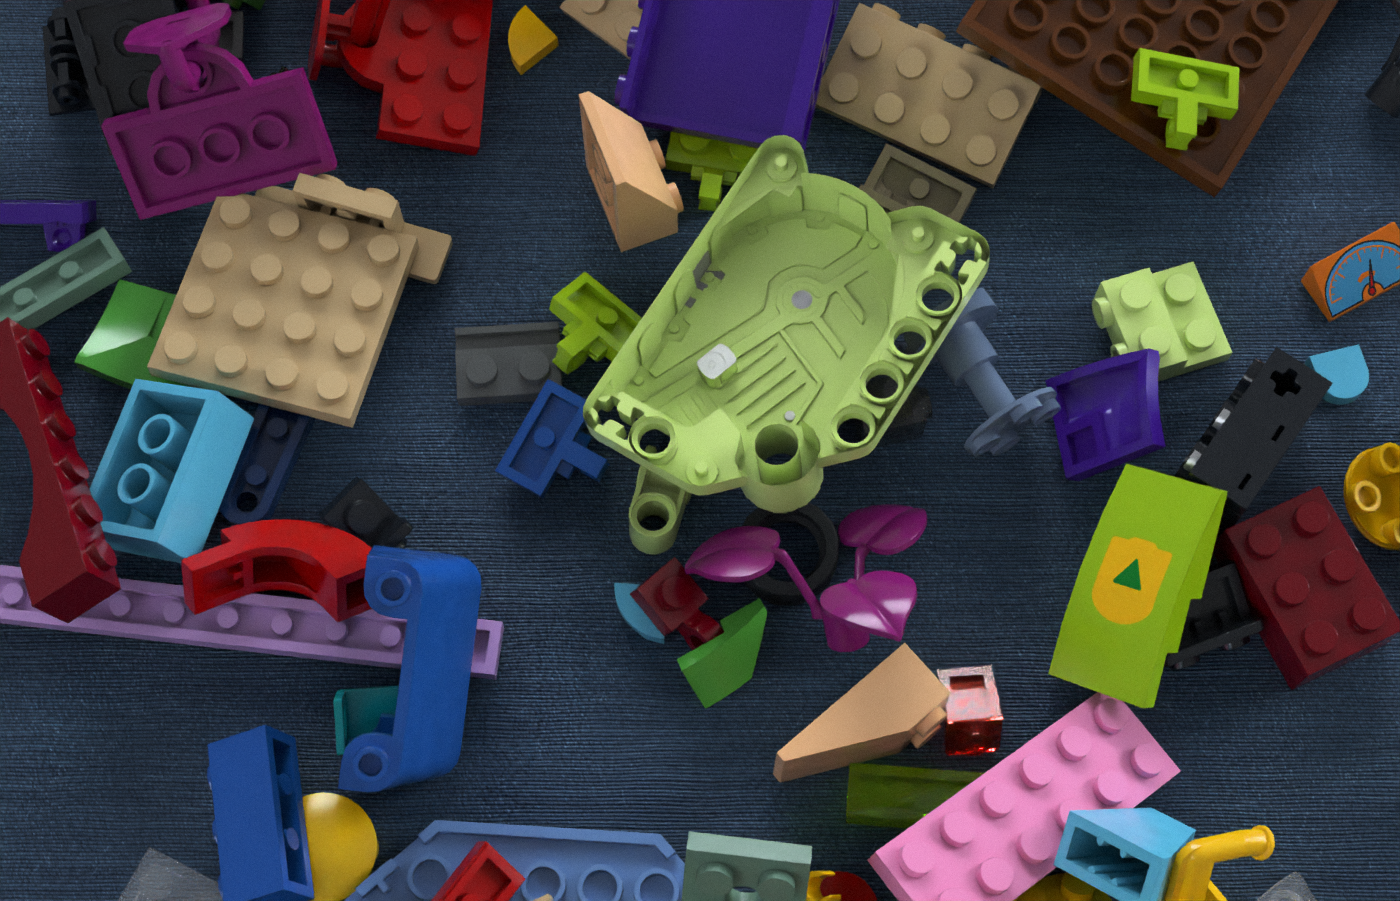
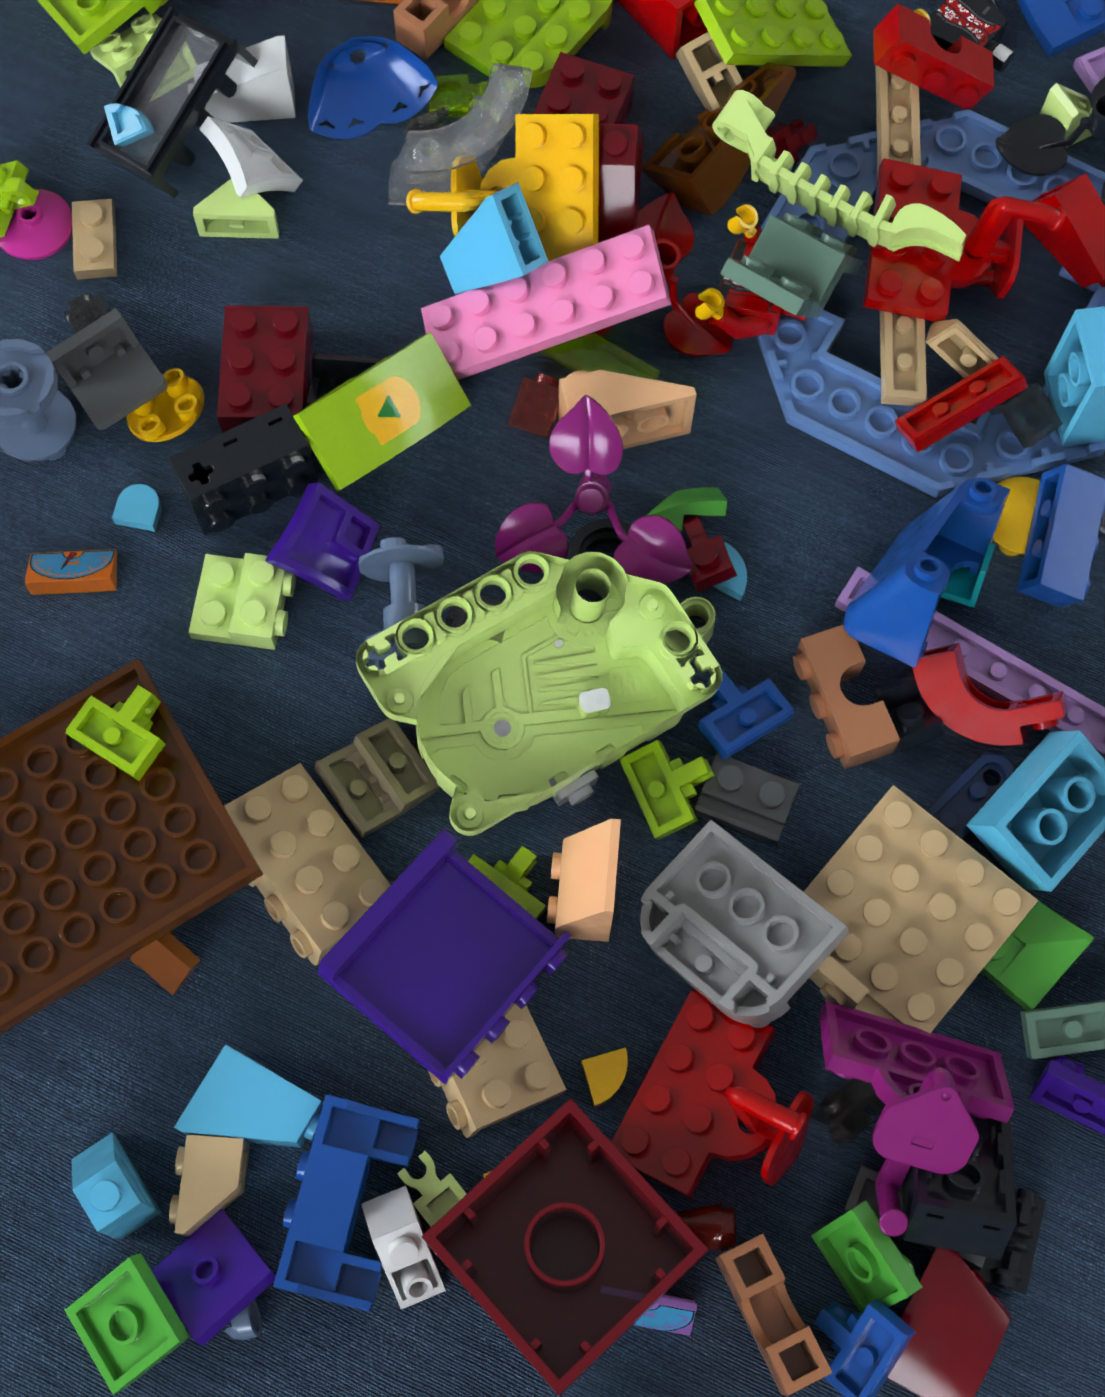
camera: 155 degrees left, 0 degrees up
(416, 481) = (854, 730): none -> nougat arch
(456, 195) = (736, 927): none -> light grey plate

